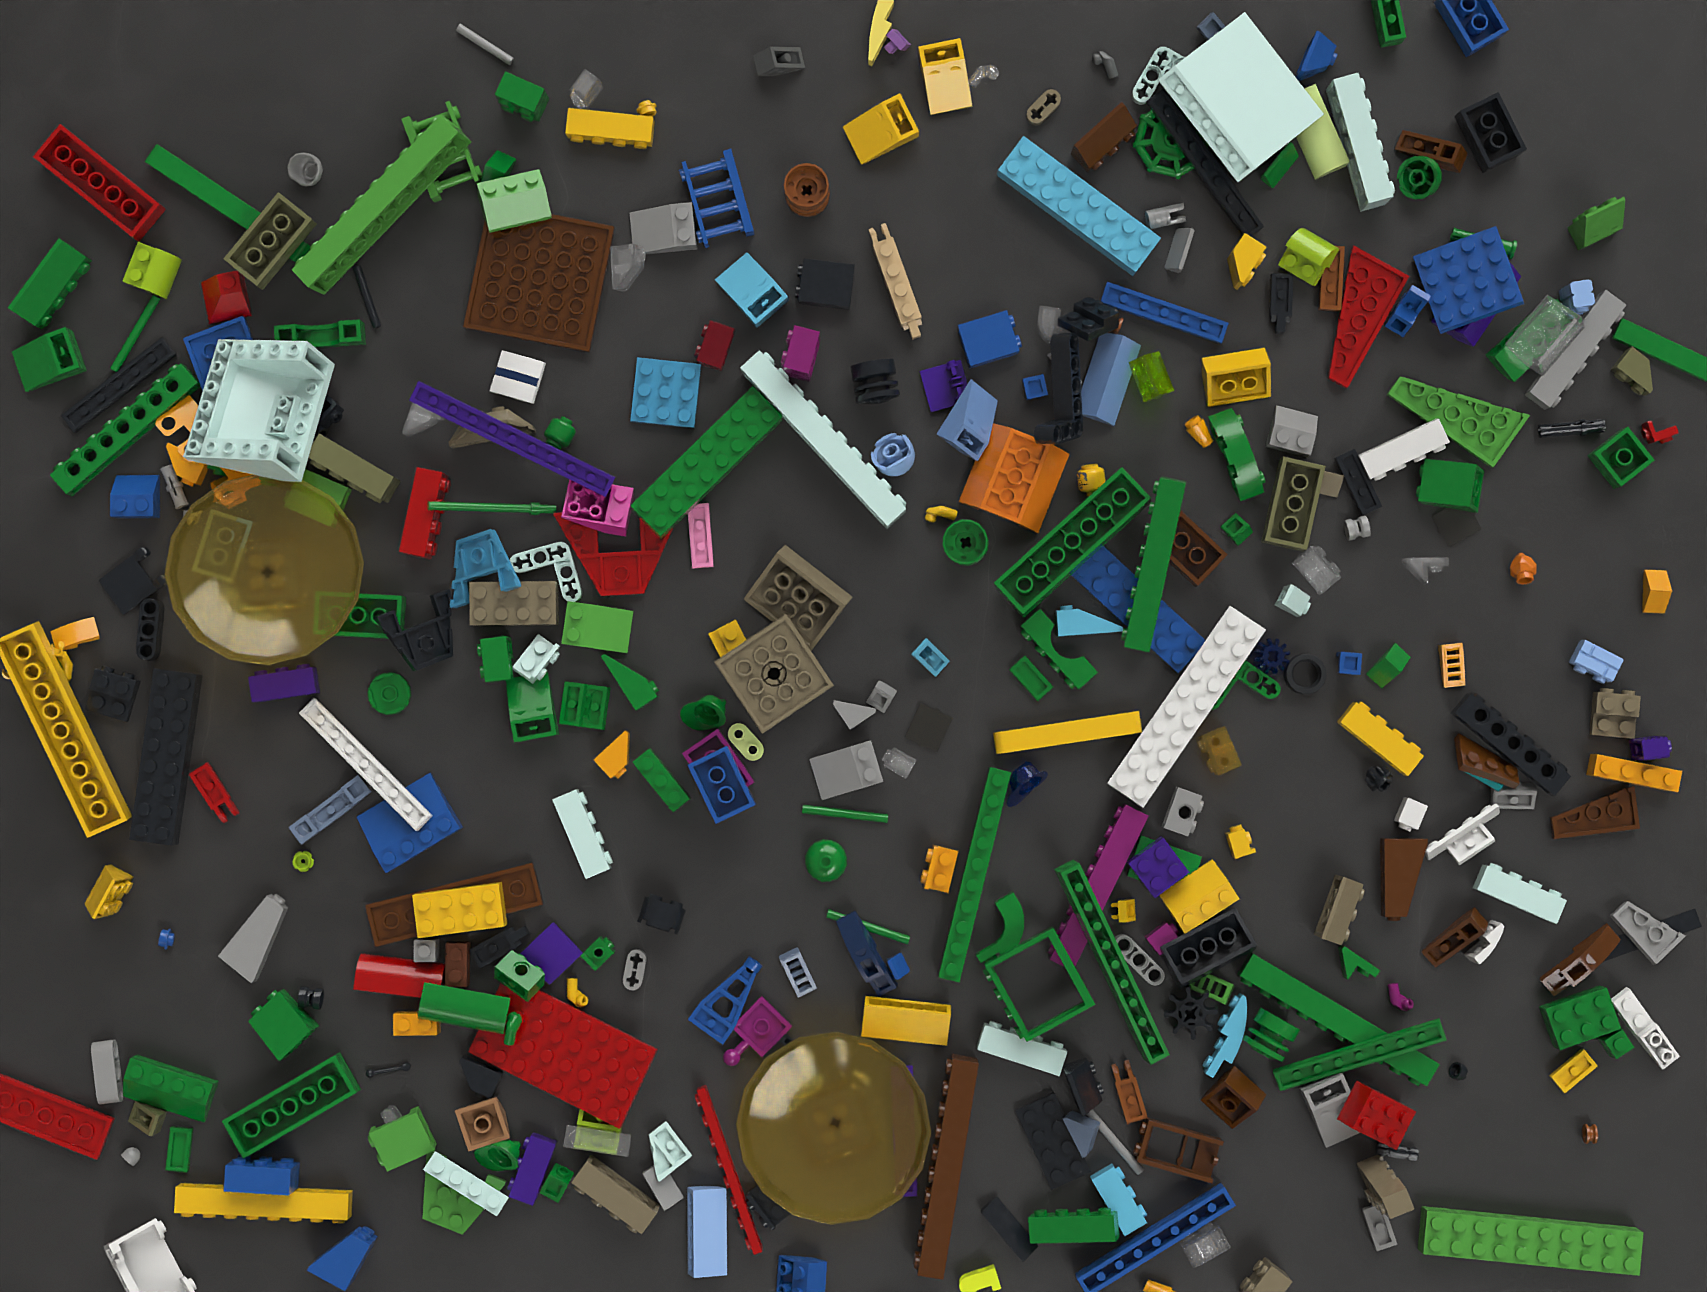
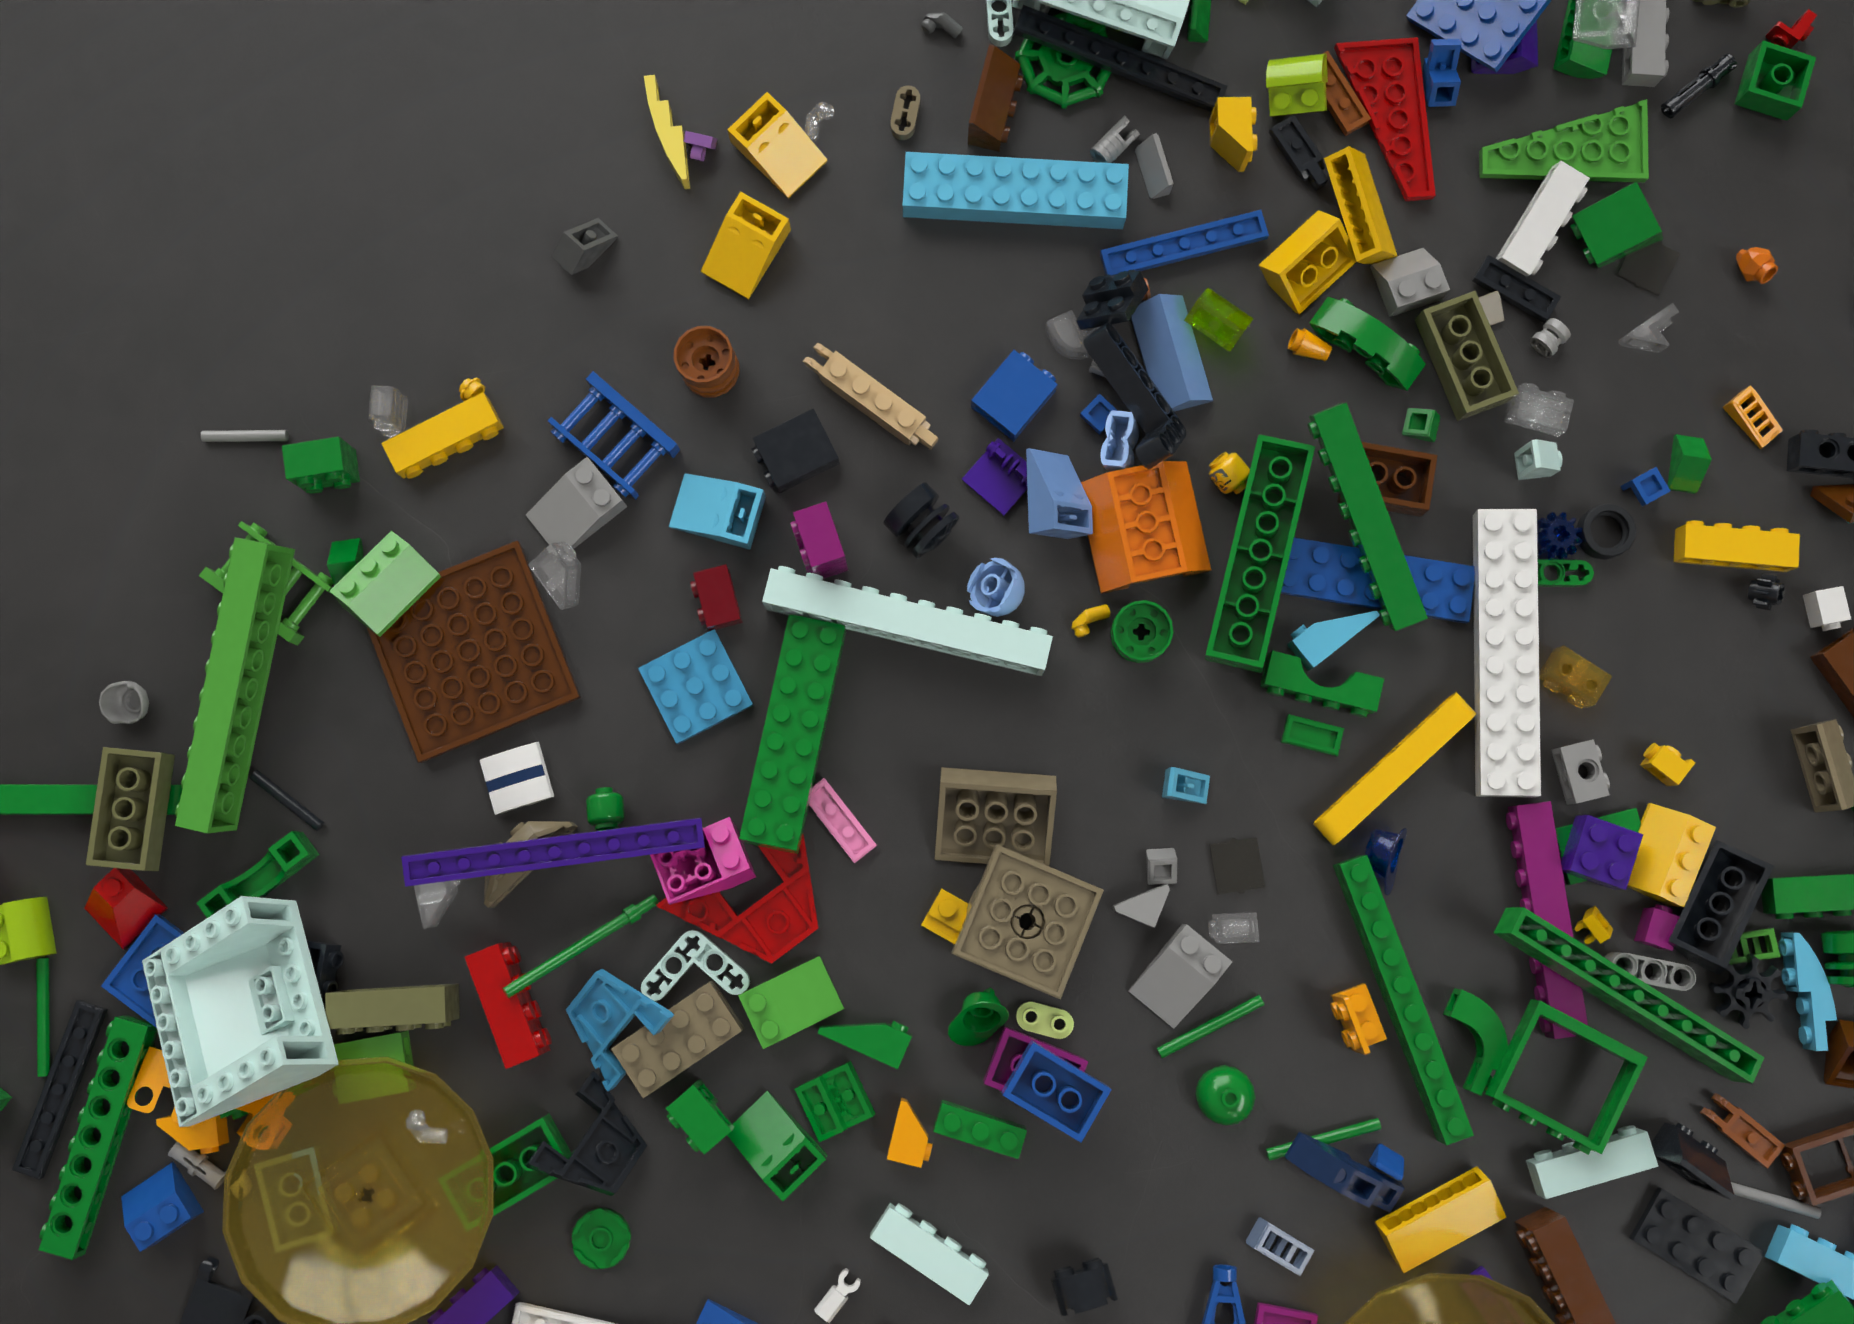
camera: 35 degrees left, 5 degrees down
(326, 557) = (422, 1132): none -> clear arm
(508, 822) = (836, 1297): none -> white bar
(536, 658) = (744, 1085): light aqua bracket -> none
(1038, 410) = (1121, 438): none -> light blue brick
(1082, 1131) = (1723, 1212): sand blue slope -> none
(1294, 363) = (1360, 206): none -> yellow brick

